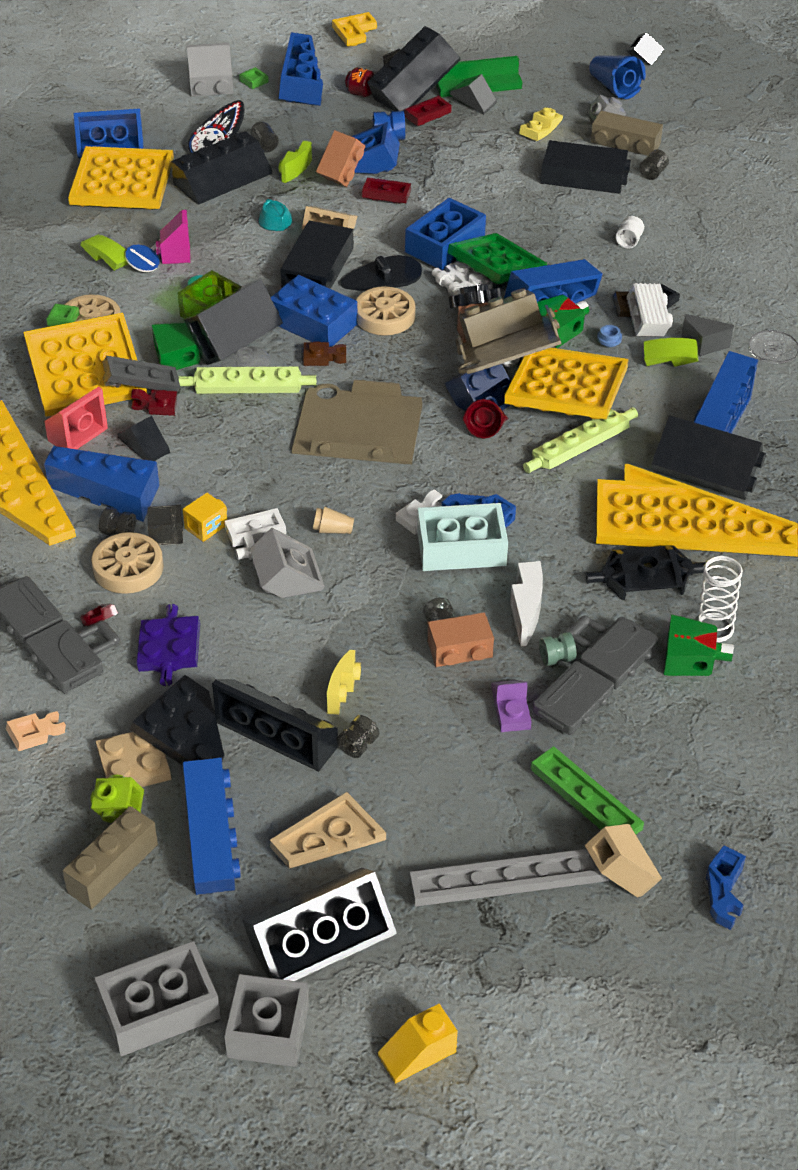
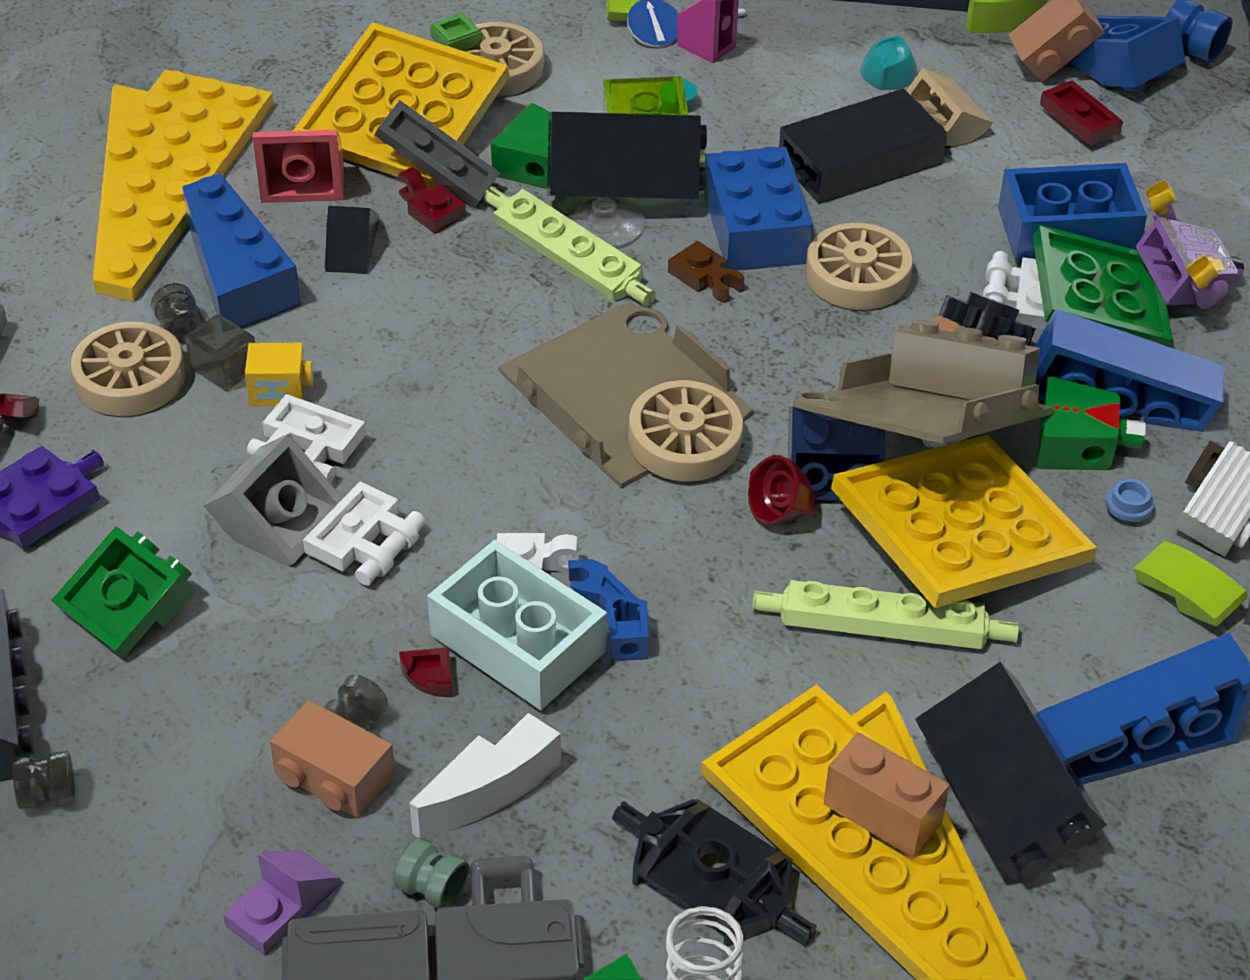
camera: 45 degrees right, 0 degrees up
(278, 645) = (125, 590): none -> green plate
(332, 521) = (405, 481): tan cone -> none
(332, 552) = (353, 525): none -> white plate
(342, 681) = (138, 689): light yellow slope -> none
(384, 272) = (933, 220): black shield -> none
(412, 421) = (685, 419): none -> tan wheel
(442, 584) = (428, 670): none -> dark red tile
(515, 224) = (1183, 258): none -> medium lavender torso
(683, 493) = (885, 794): none -> nougat brick

